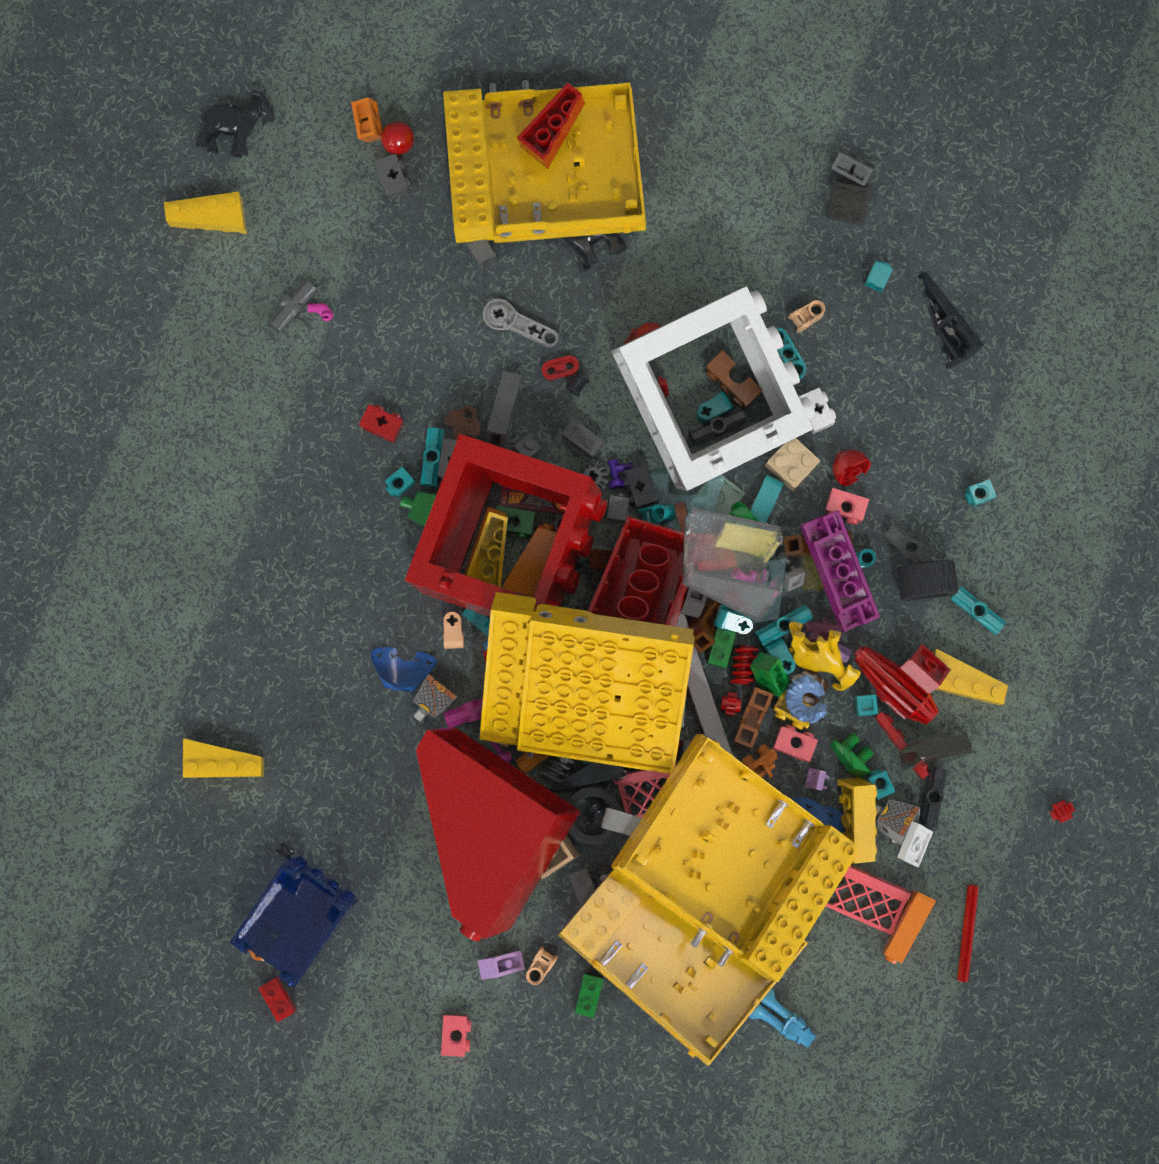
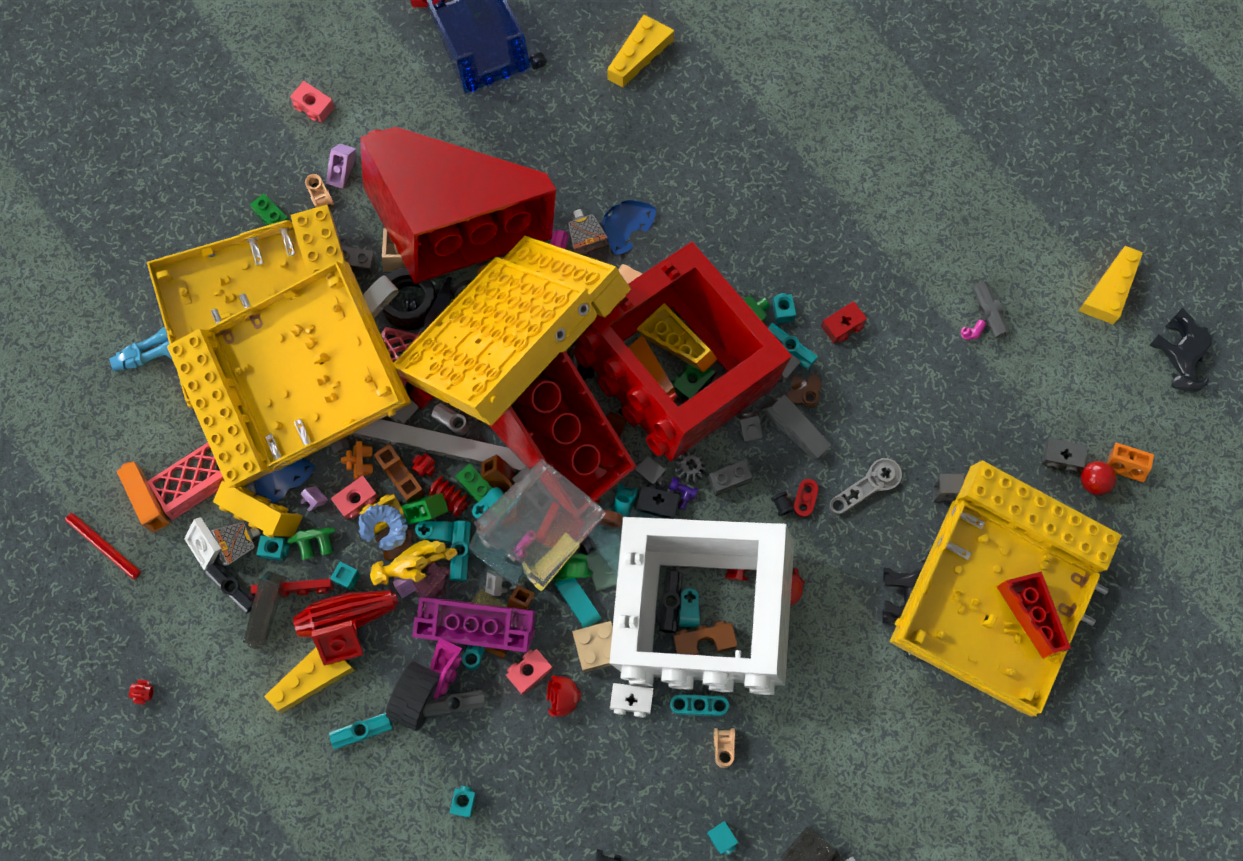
camera: 125 degrees right, 10 degrees down
(881, 574) = (445, 661): none -> dark pink bracket

